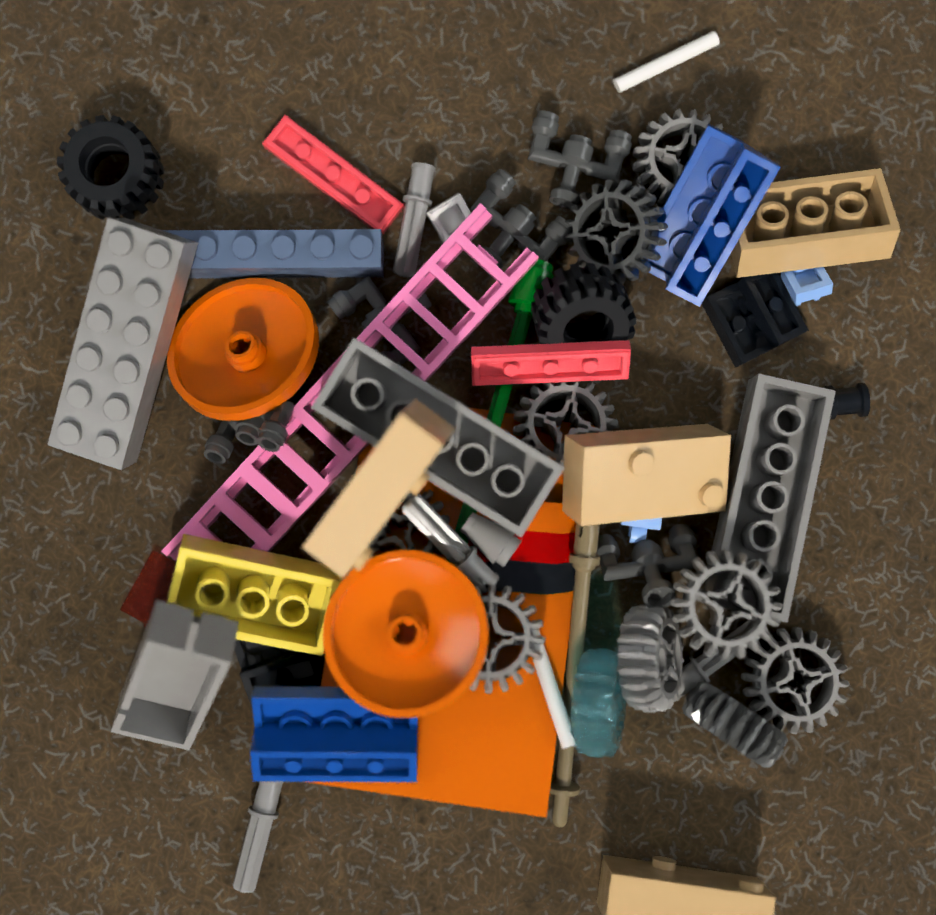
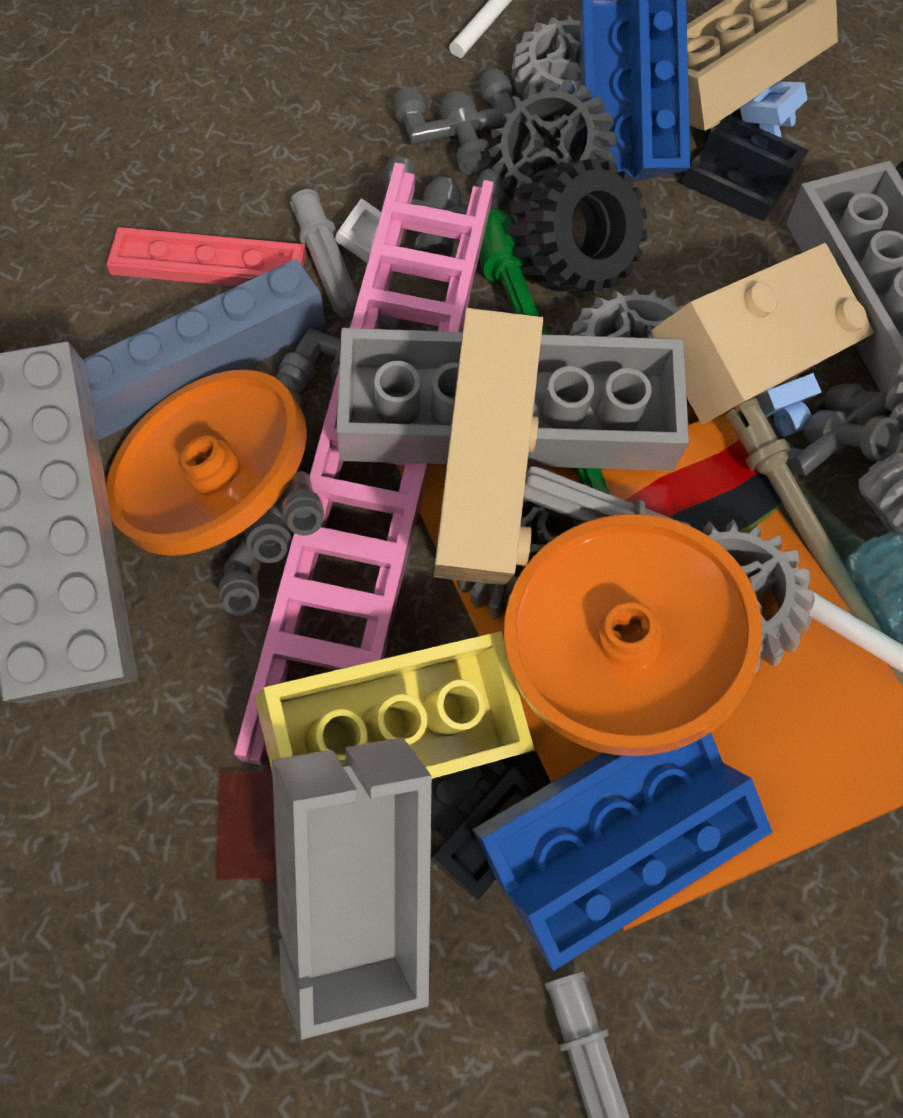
camera: 30 degrees left, 20 degrees down
(490, 539) = (657, 484): light grey cone -> none
(550, 363) = (587, 275): coral tile -> none

